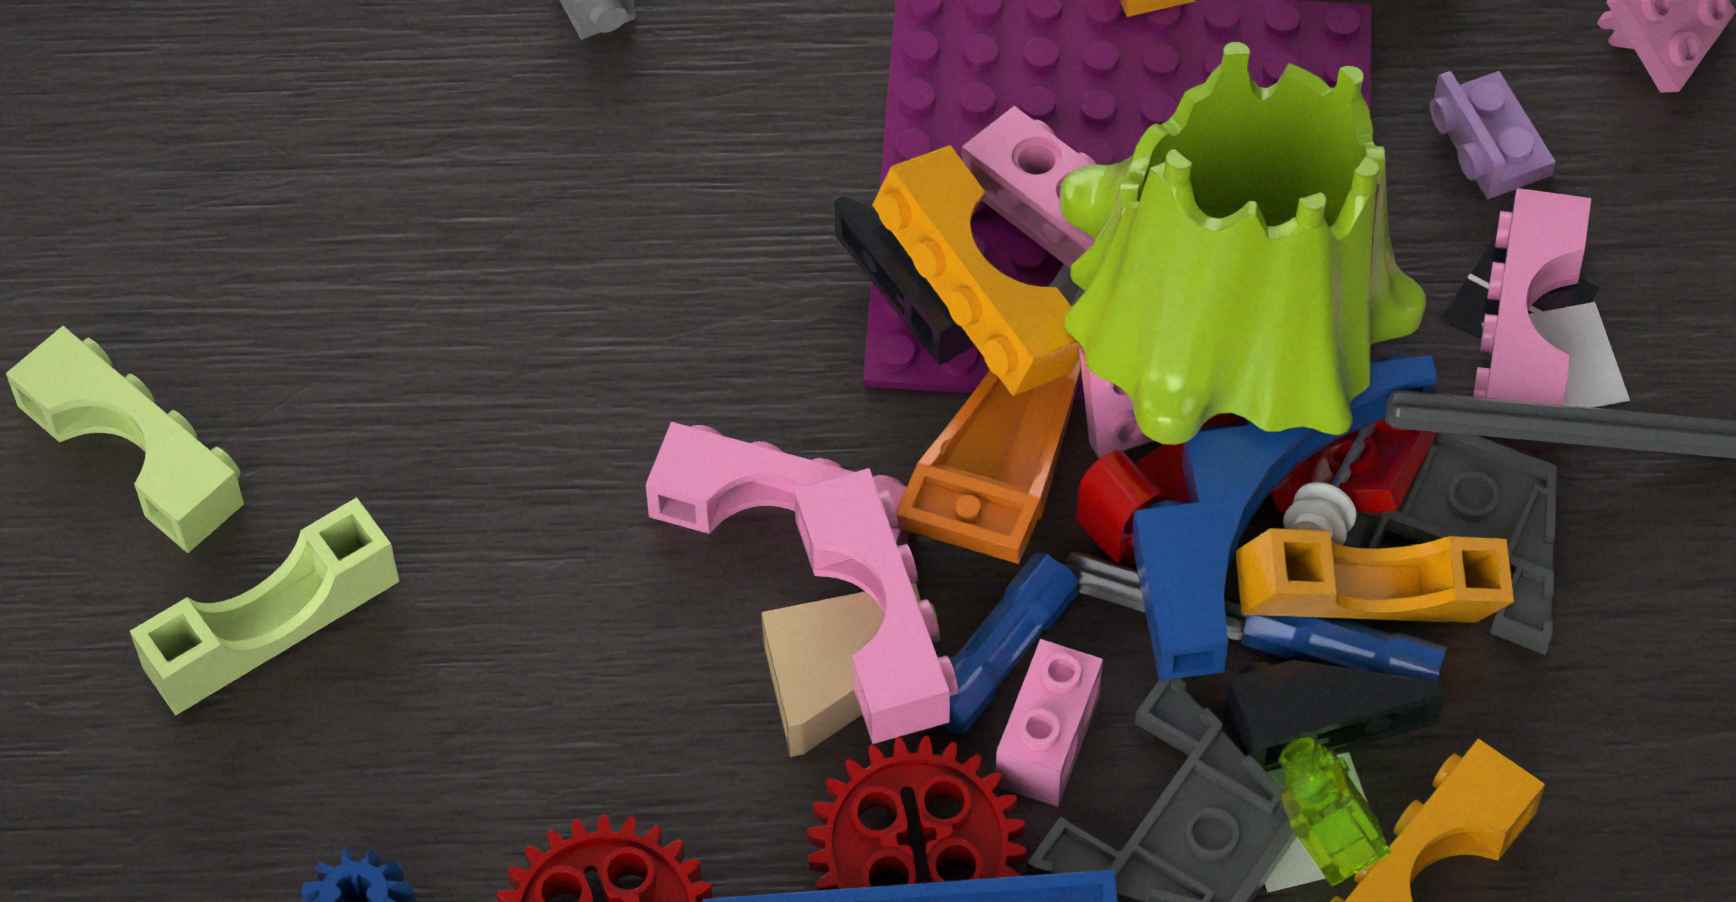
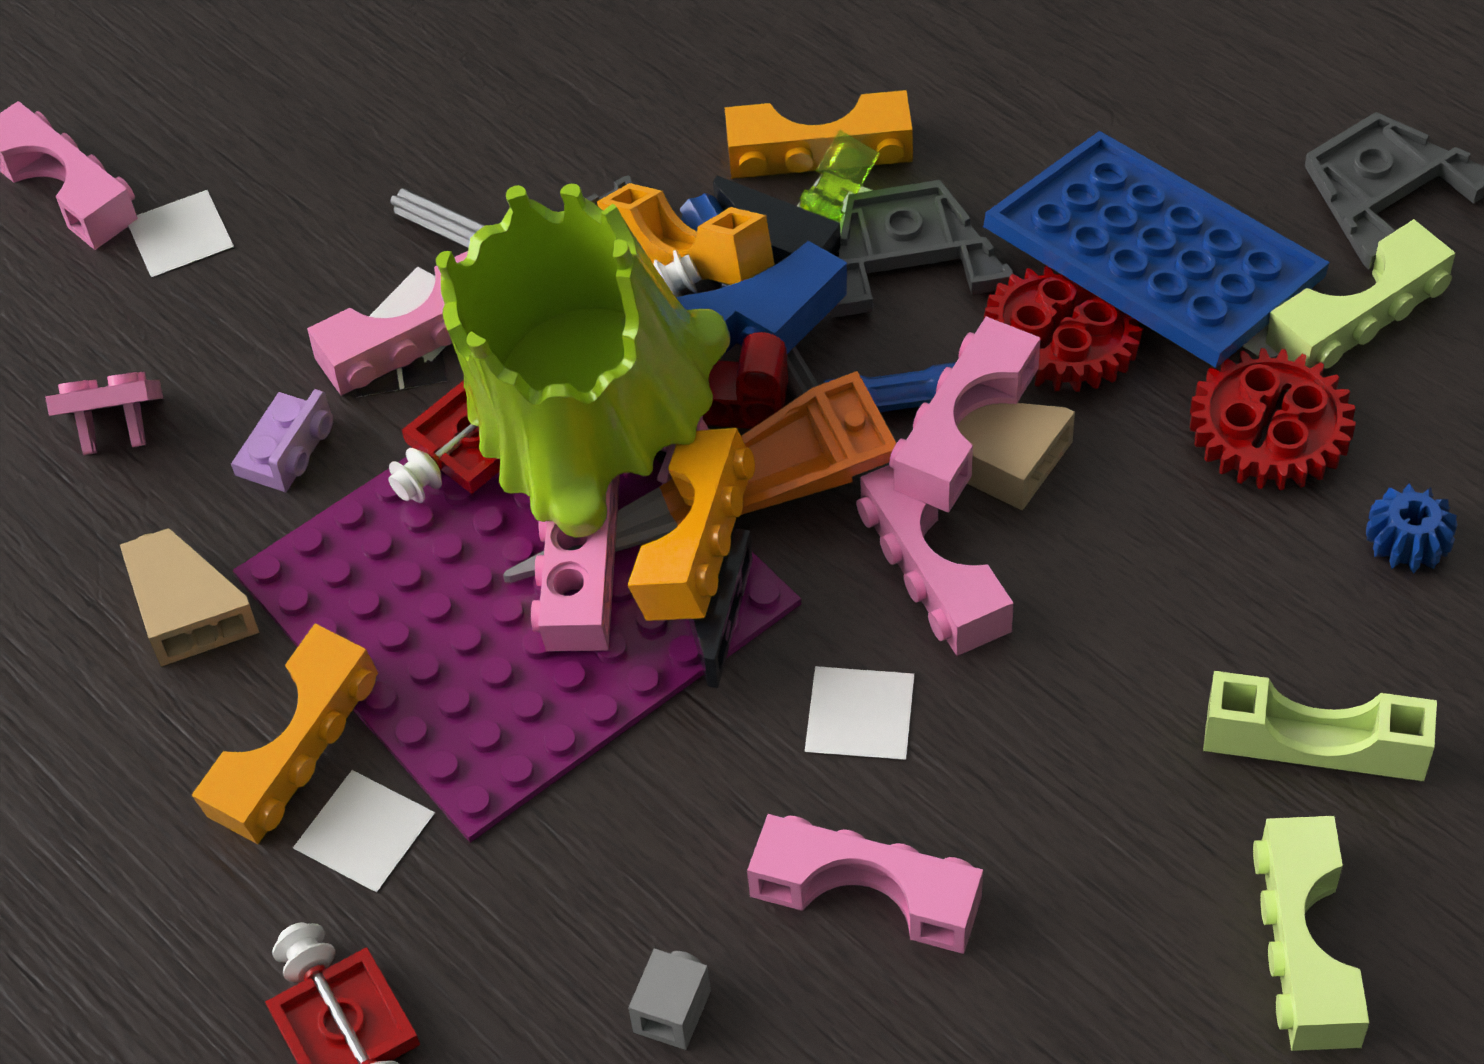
camera: 130 degrees left, 5 degrees down
(471, 215) = (803, 861): none -> bright pink arch
(703, 335) = (860, 713): none -> white sticker
(1049, 722) = (922, 326): bright pink brick -> none

